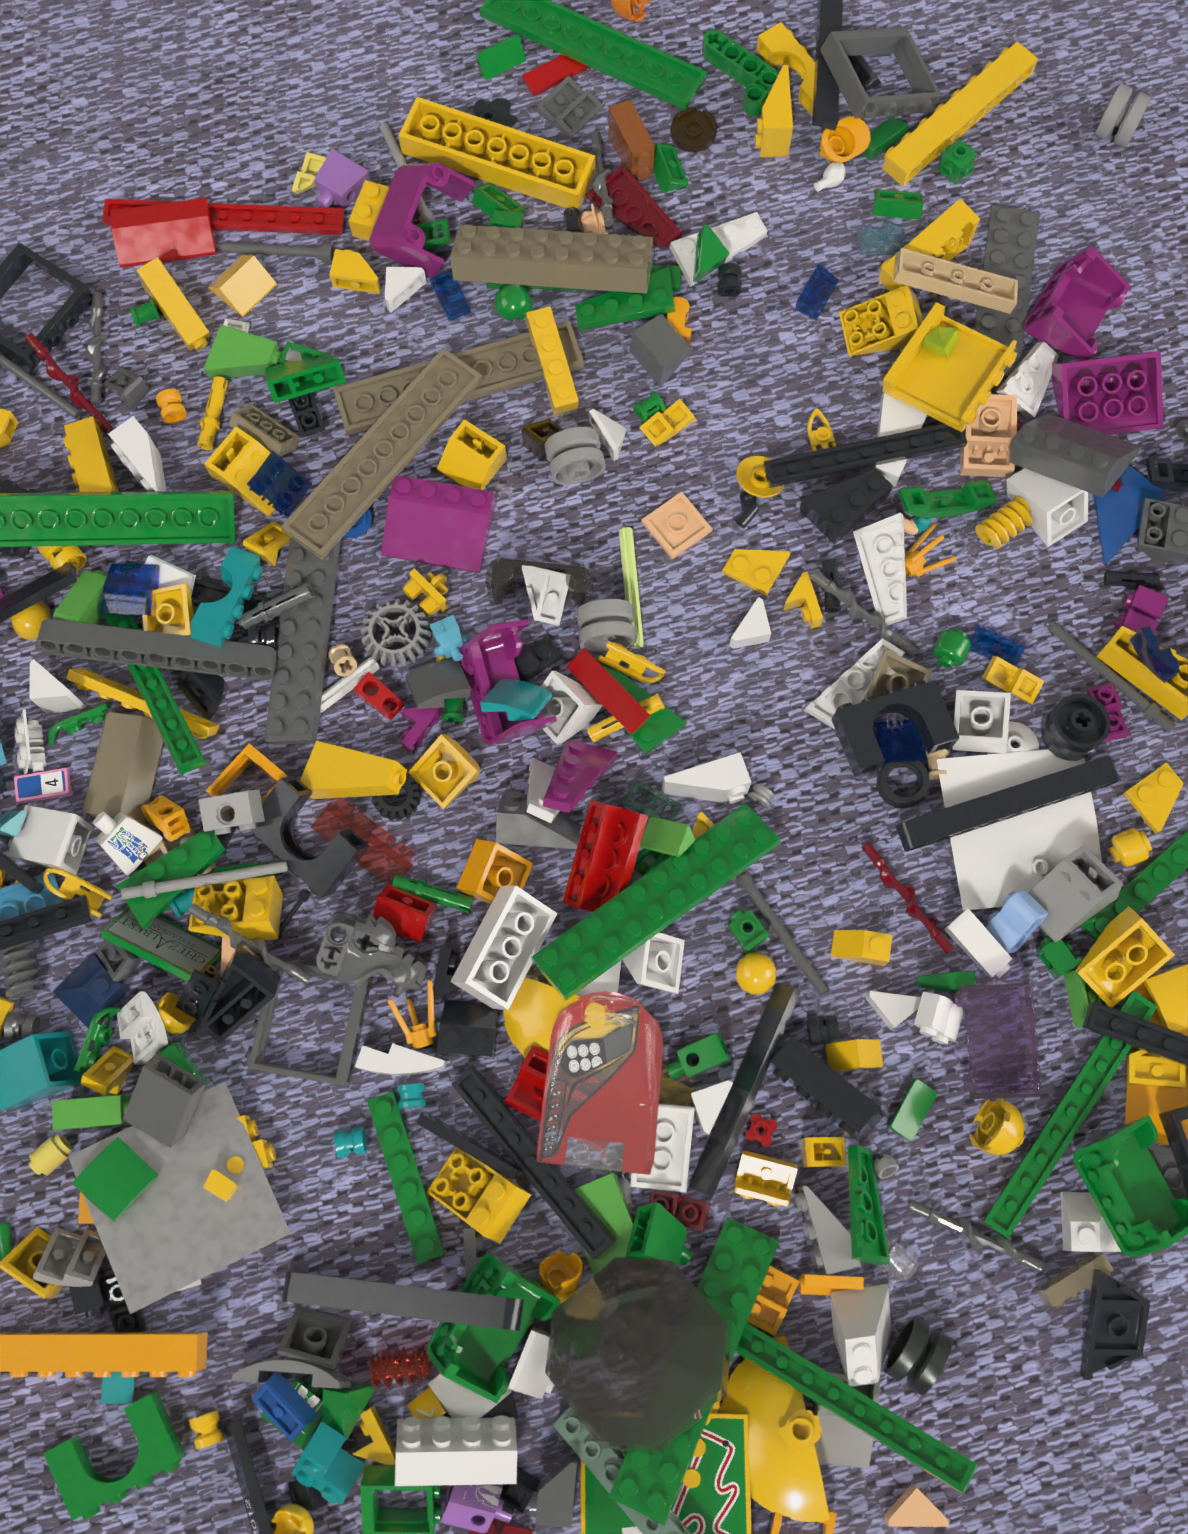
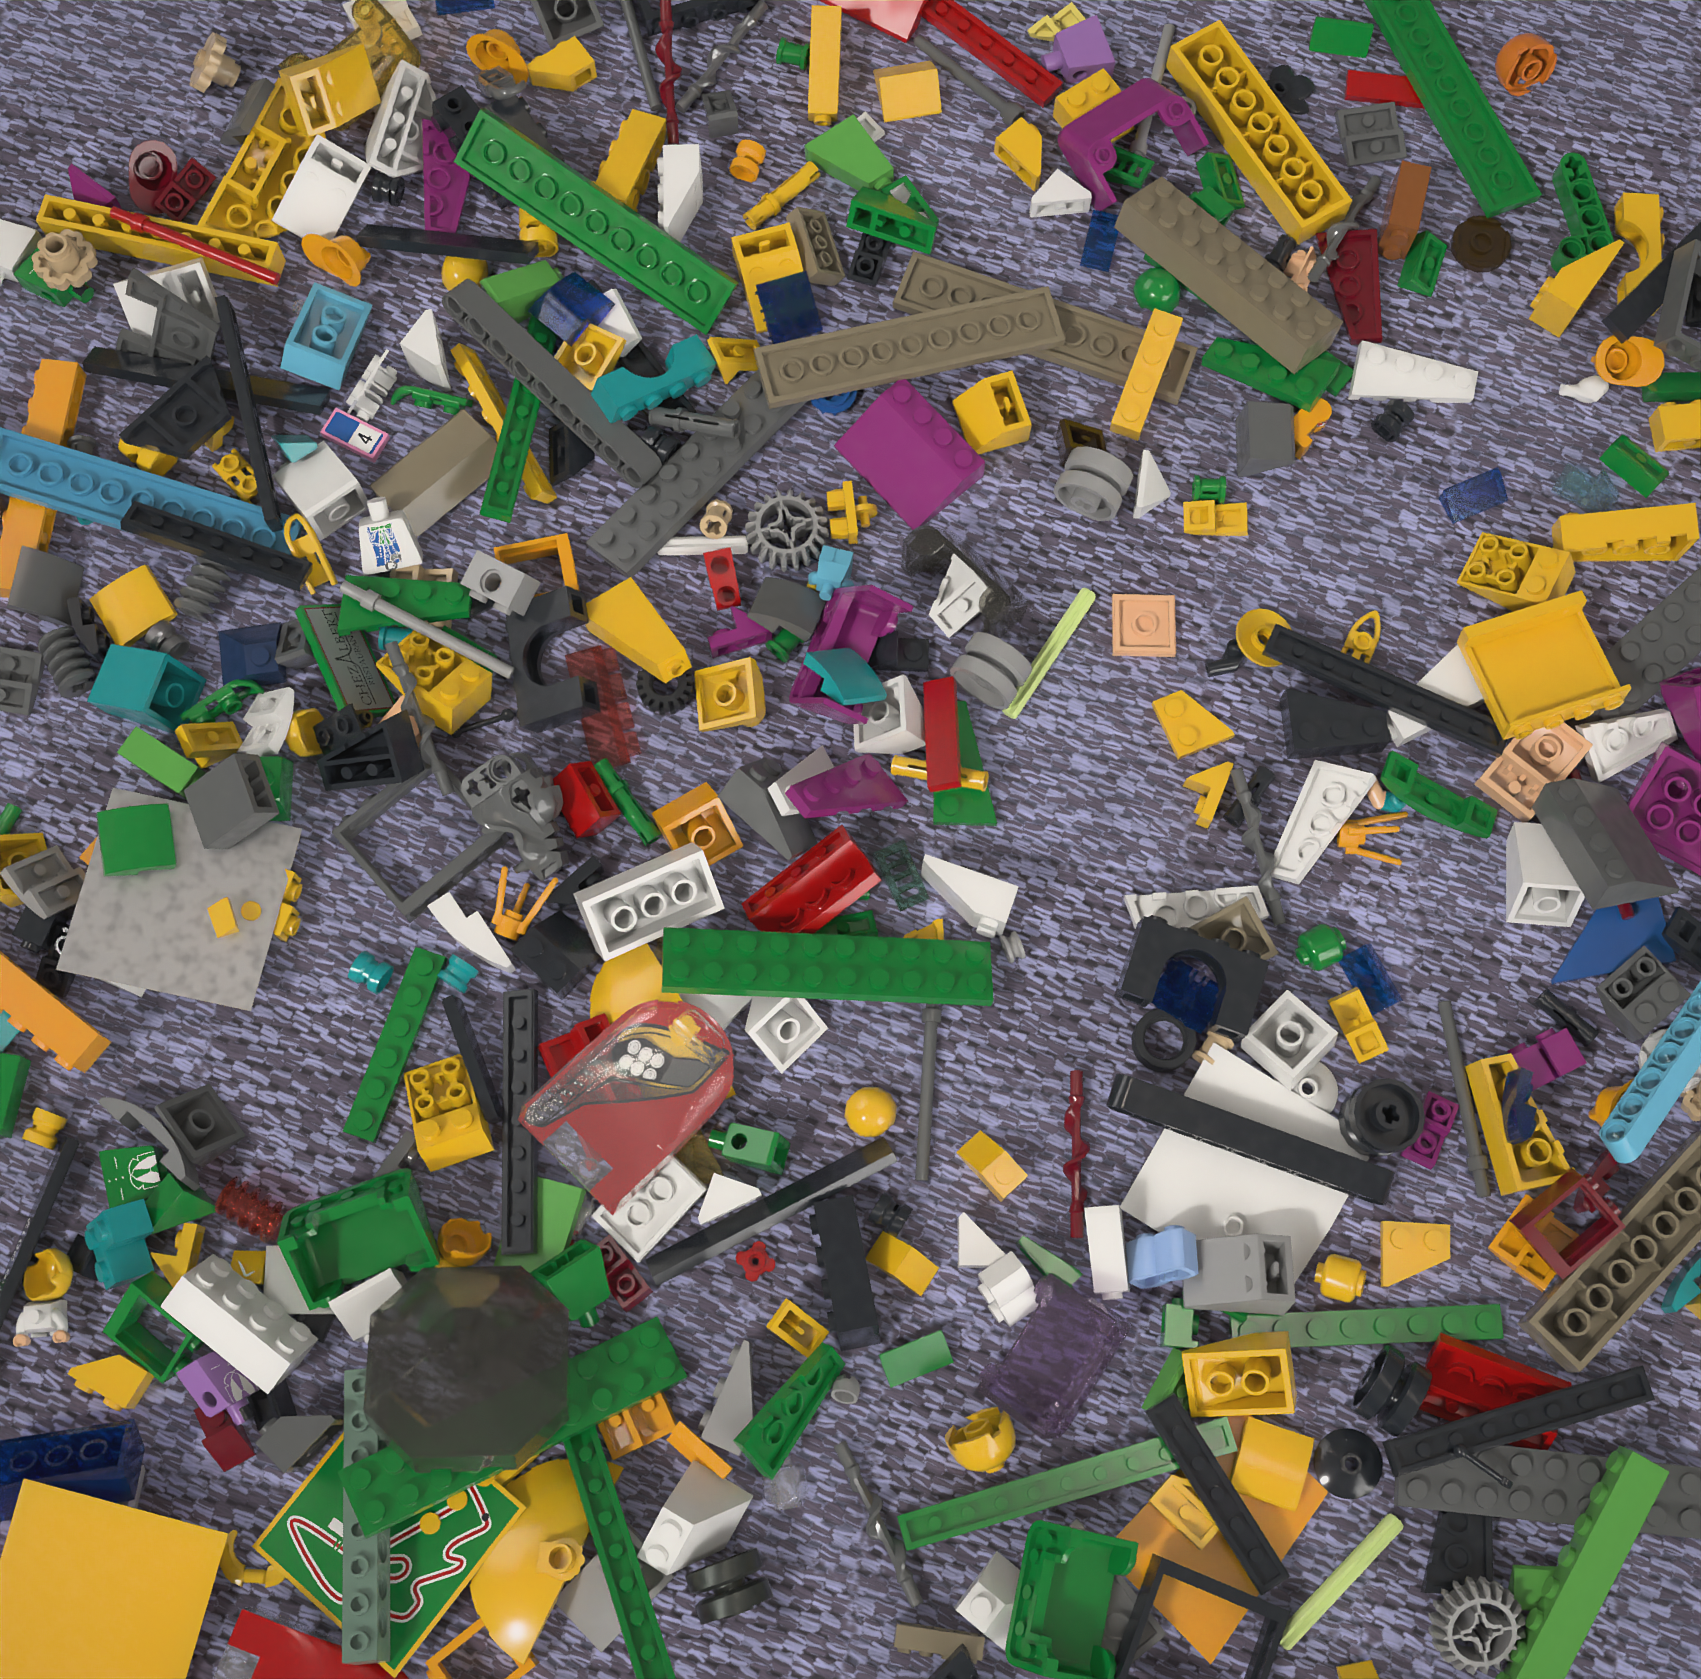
camera: 35 degrees right, 0 degrees up
(50, 1155) = (101, 776): light yellow brick -> none
(166, 817) = (439, 547): light orange leg -> none
(284, 1406) = (124, 1160): blue slope -> none
(404, 1301) = (300, 1151): black beam -> none
(637, 663) = (994, 731): yellow piece -> none
(667, 836) = (886, 916): bright green slope -> none
(709, 253) = (1390, 379): green slope -> none
(746, 940) = (894, 1076): green brick -> none
(753, 628) = (1134, 779): white slope -> none
(765, 1178) = (721, 1309): yellow bracket -> none
(941, 340) = (1556, 633): lime slope -> none
(955, 280) = (1623, 584): tan piece -> none
(1005, 523) = (1478, 864): yellow piece -> none

